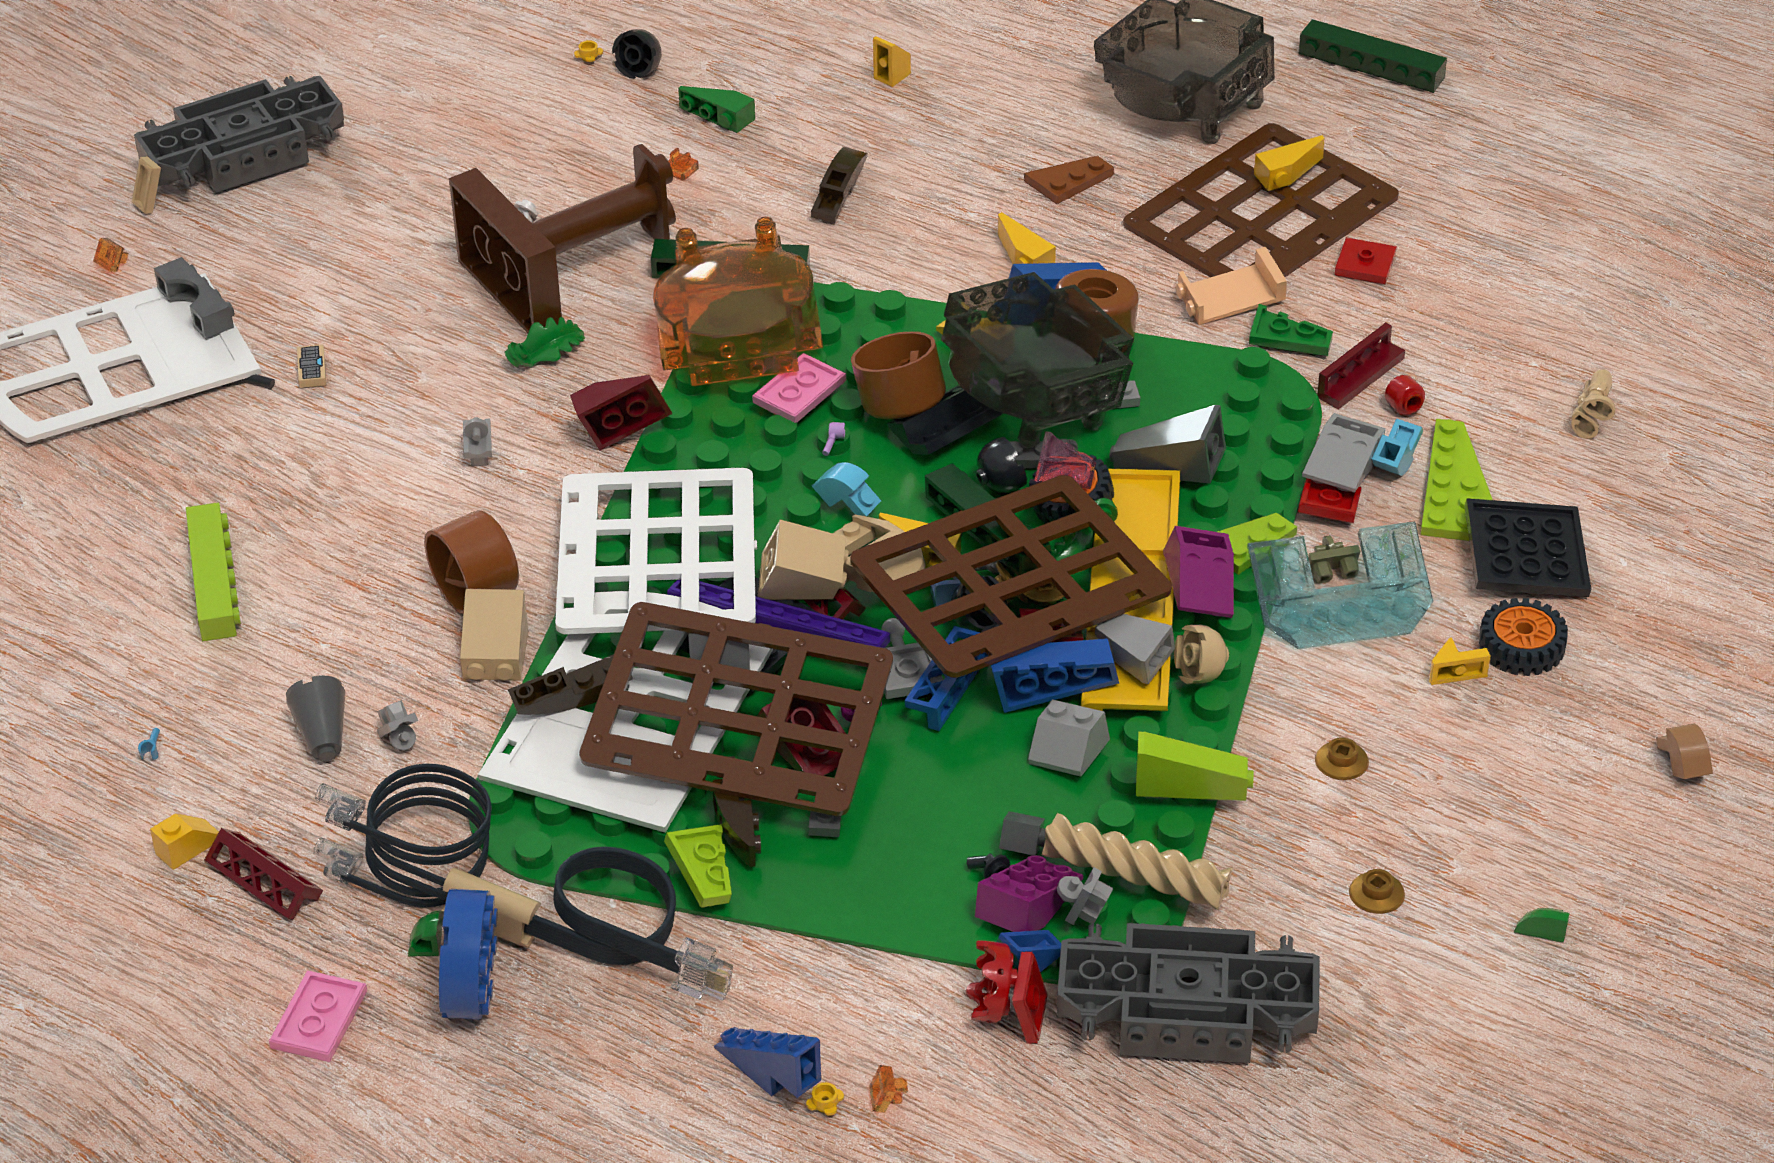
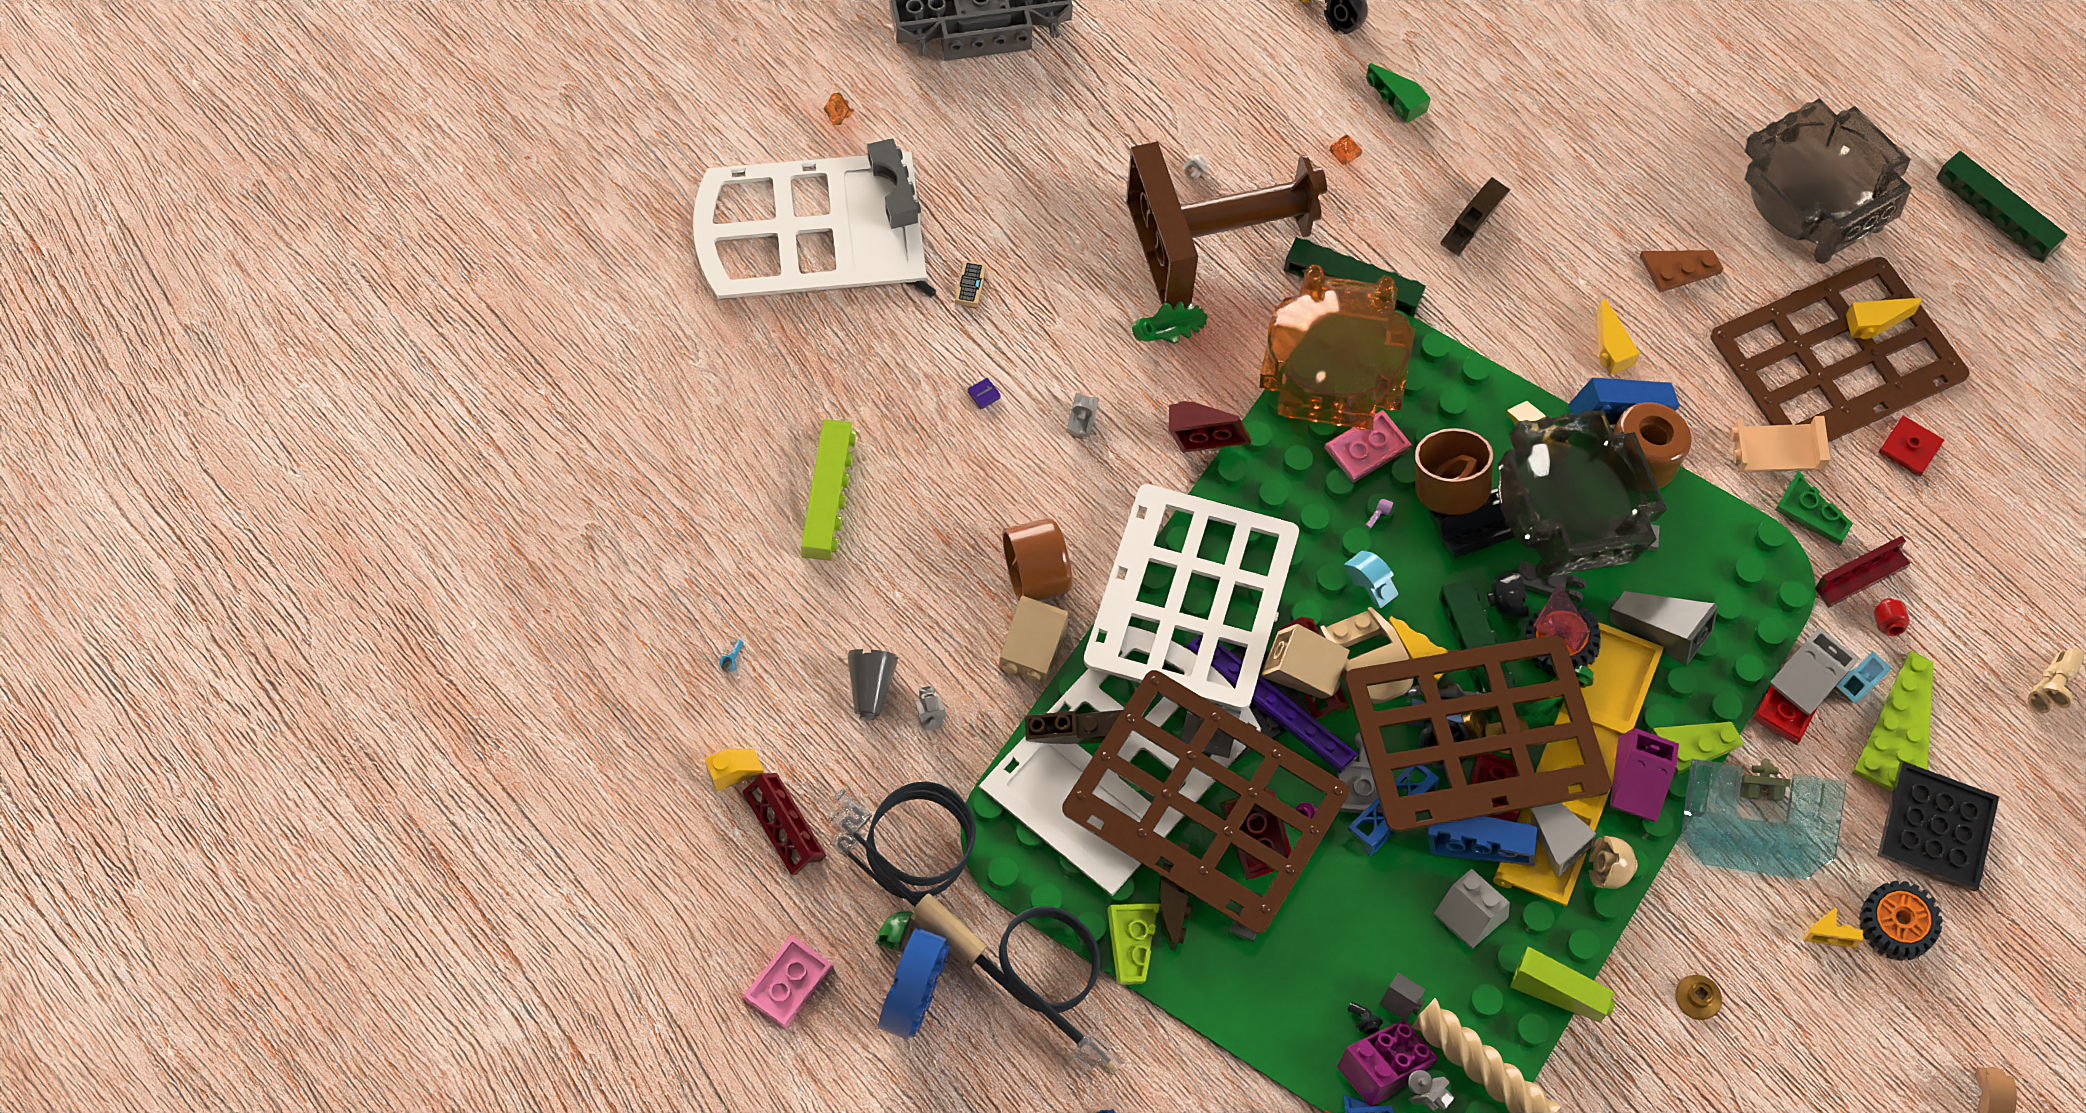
camera: 15 degrees right, 20 degrees up
(146, 185) = (886, 43): tan tile -> none
(360, 451) = (984, 393): none -> dark purple tile
(890, 62) = (1564, 87): yellow slope -> none

